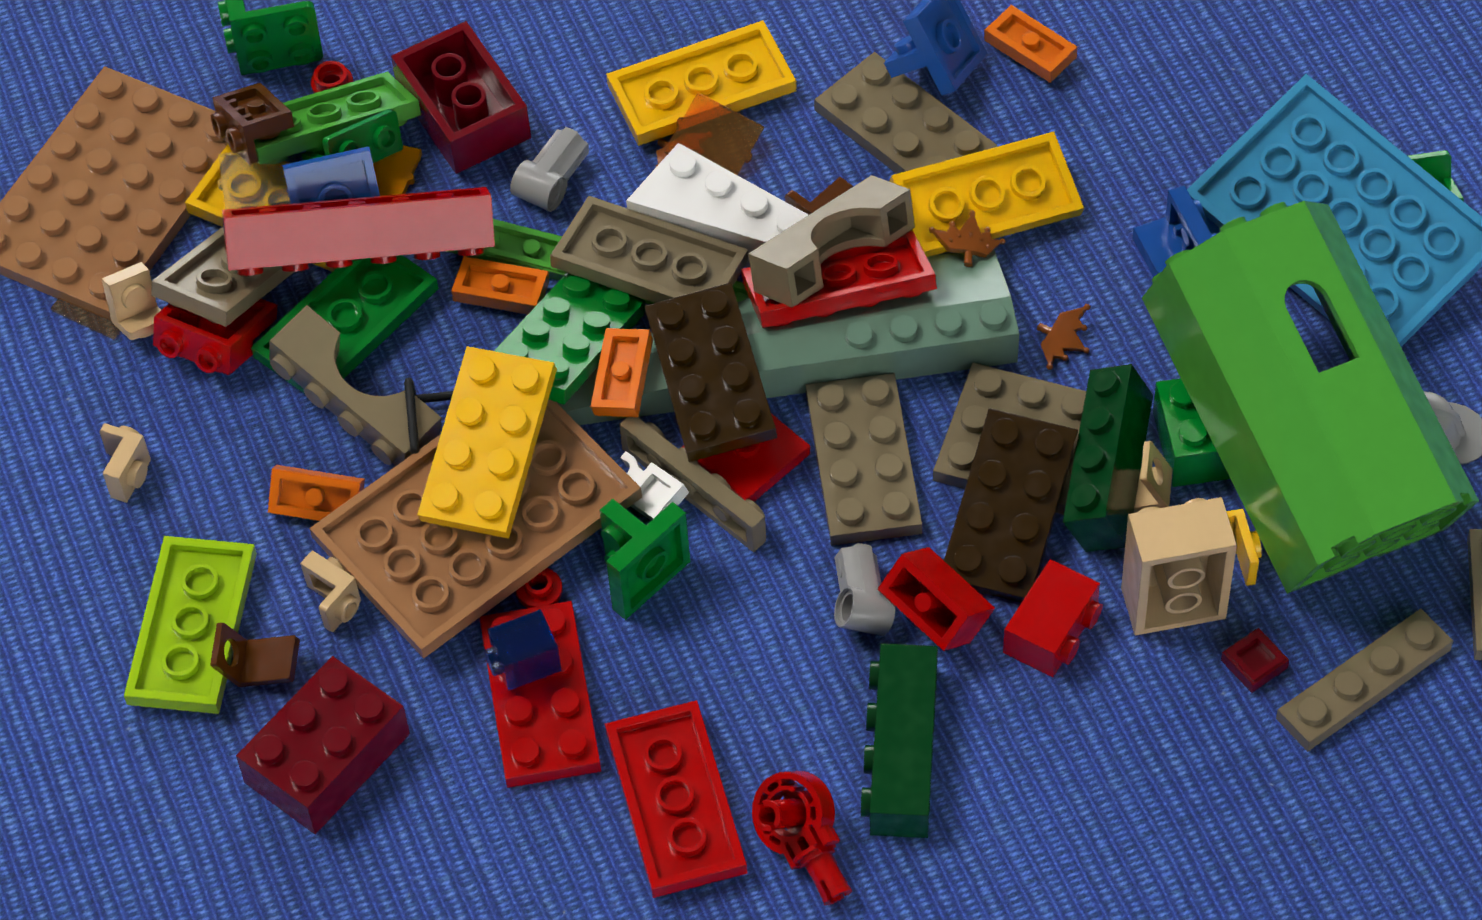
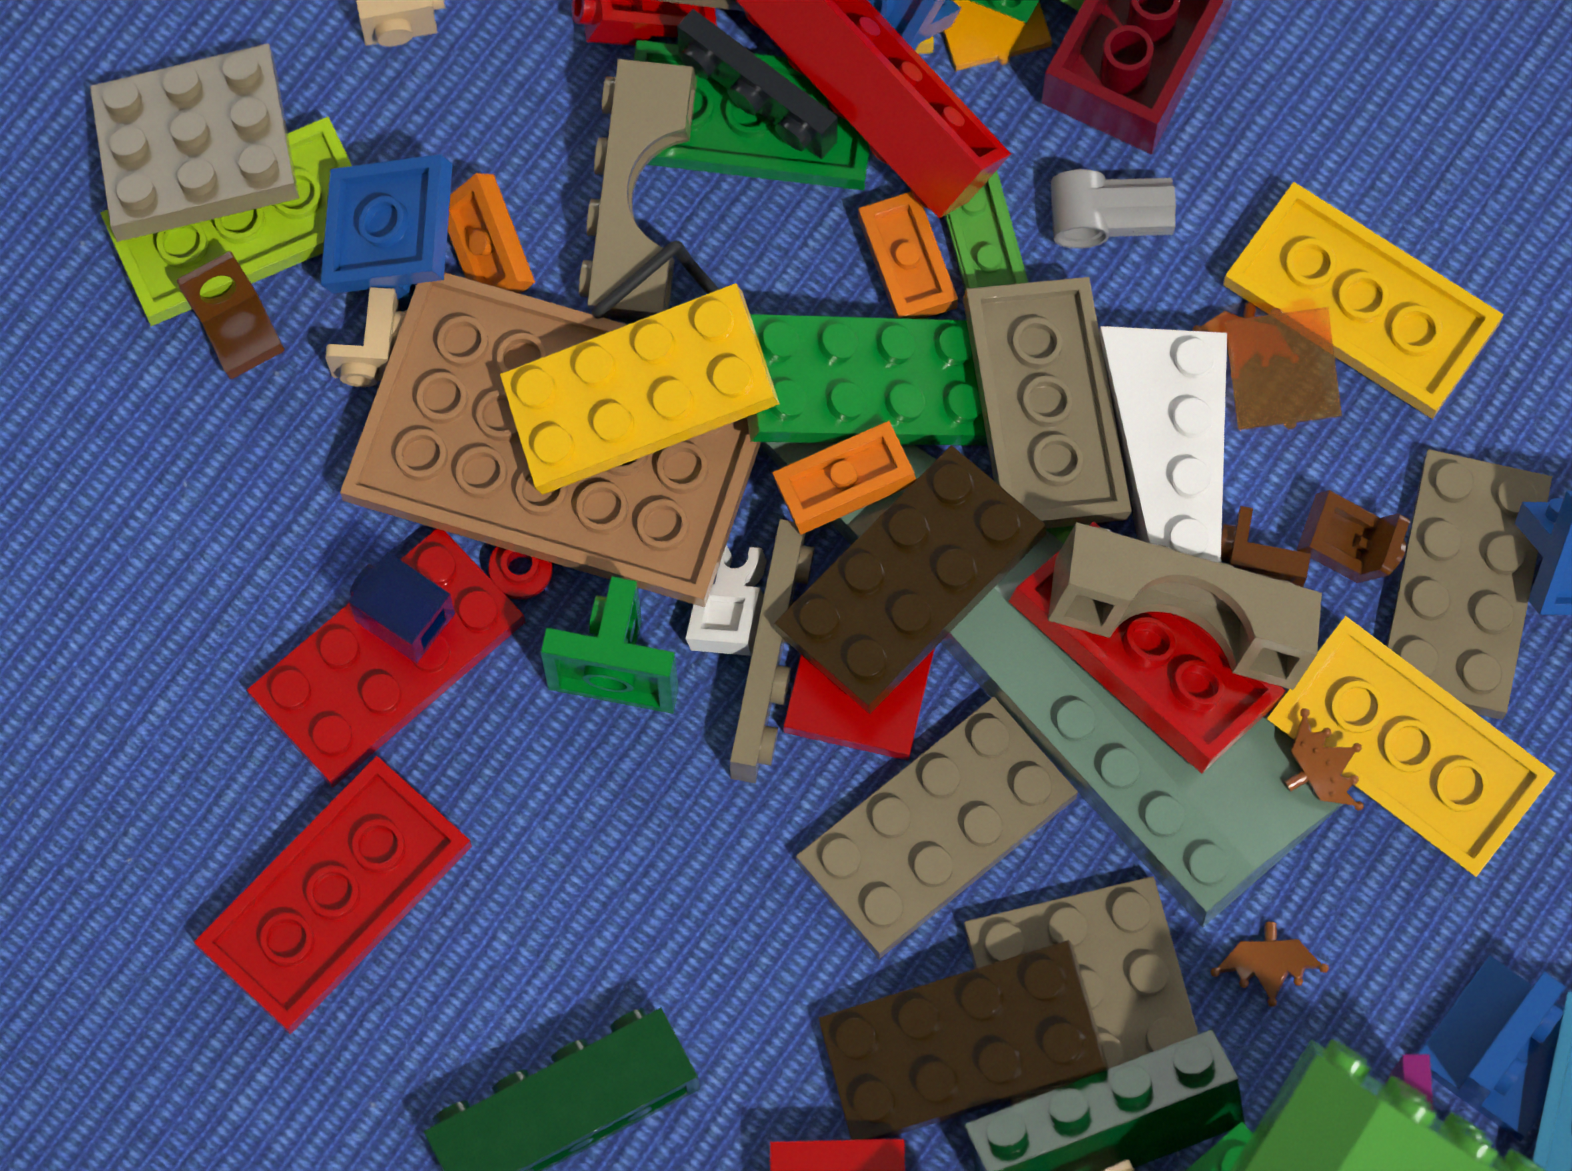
camera: 55 degrees right, 15 degrees up
(120, 617) = (193, 142): none -> dark tan plate
(268, 529) = (387, 225): none -> blue bracket
(323, 744) = (165, 465): dark red brick -> none
(338, 290) = (756, 85): none -> black plate
(810, 828) = (367, 1062): red pin -> none
(847, 159) = (1353, 538): none -> reddish brown bracket
(860, 602) = (719, 949): light grey piece -> none
(936, 598) = (768, 1034): red brick -> none

